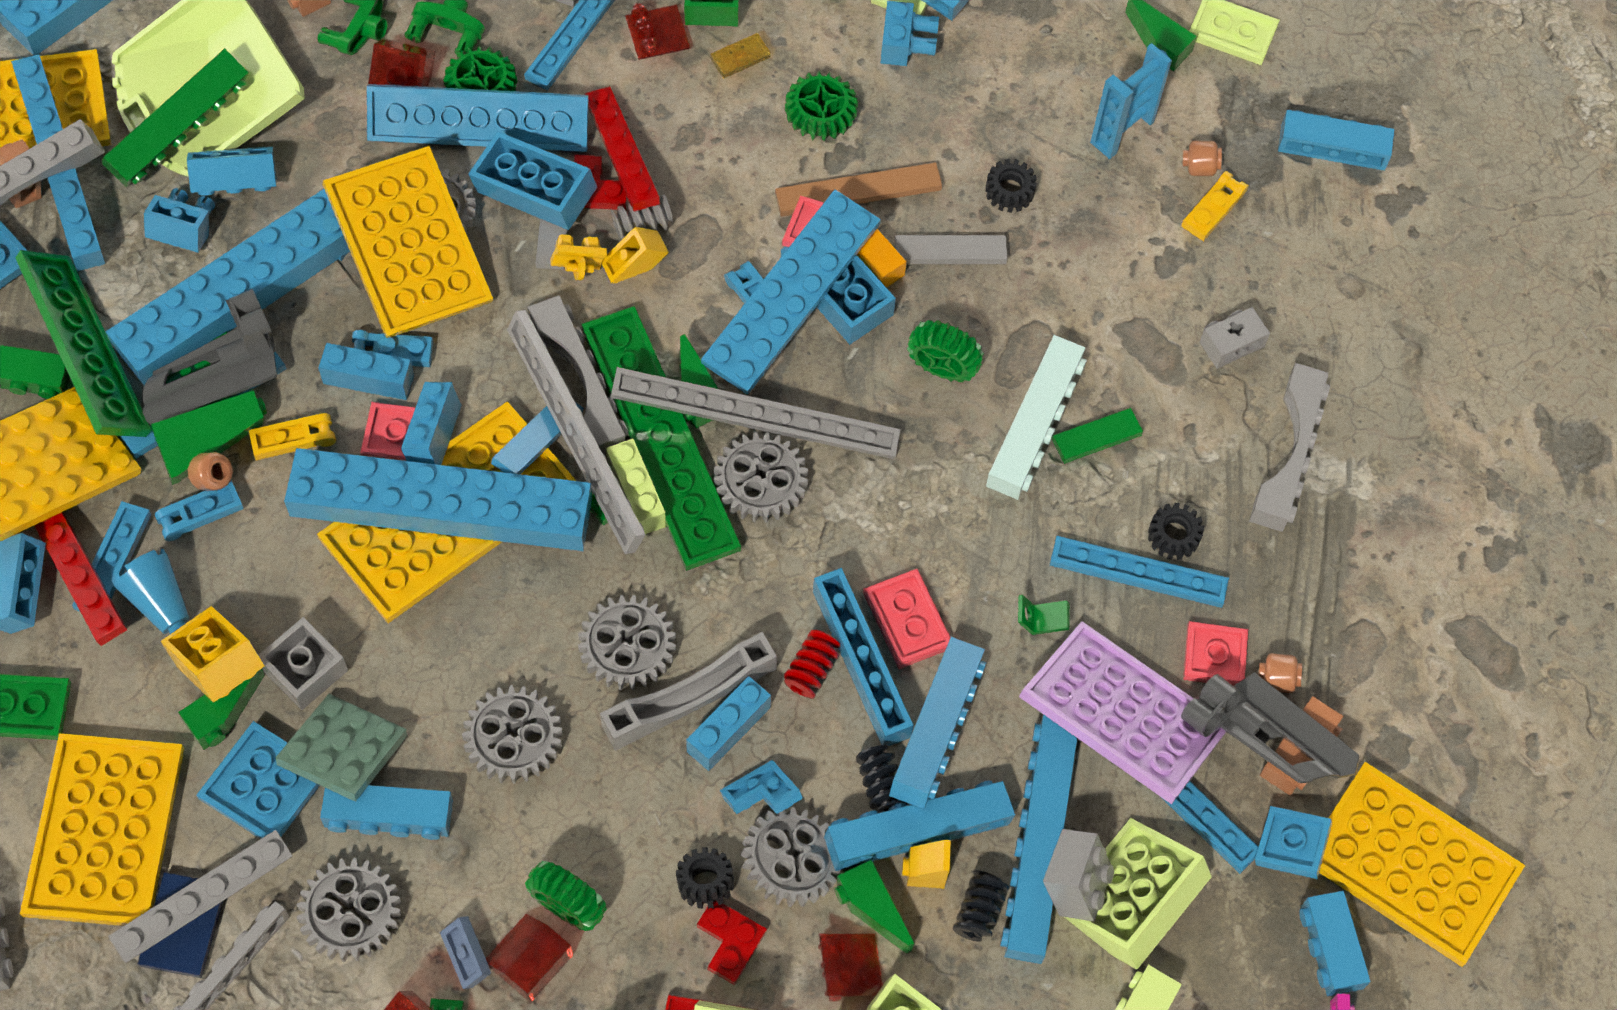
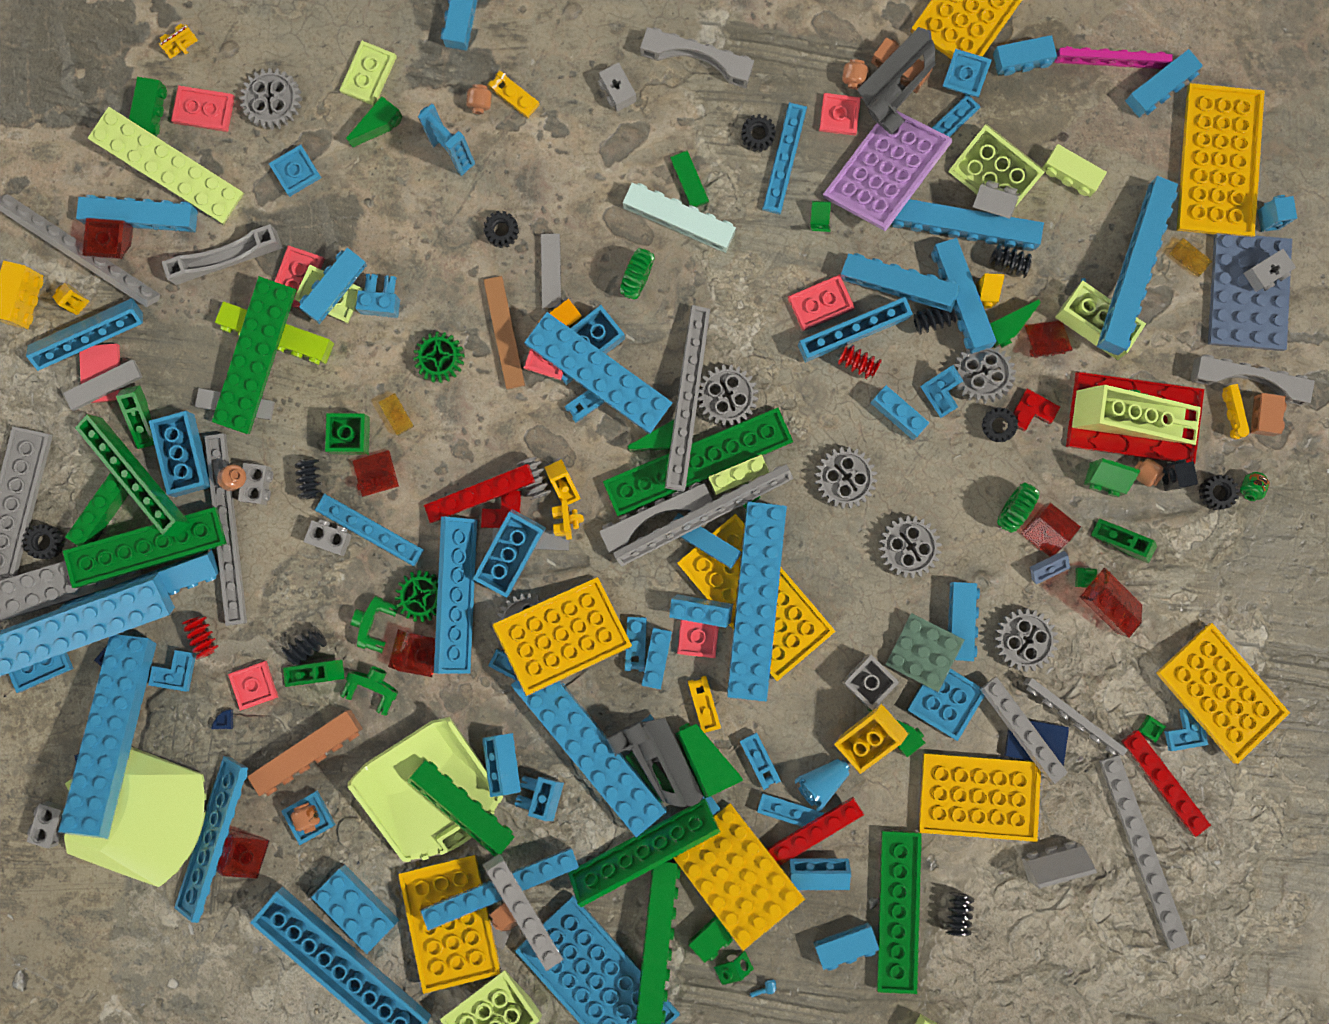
camera: 85 degrees left, 20 degrees up
(210, 471) = (738, 754): nougat head -> none
(648, 713) = (872, 425): light grey arch -> none

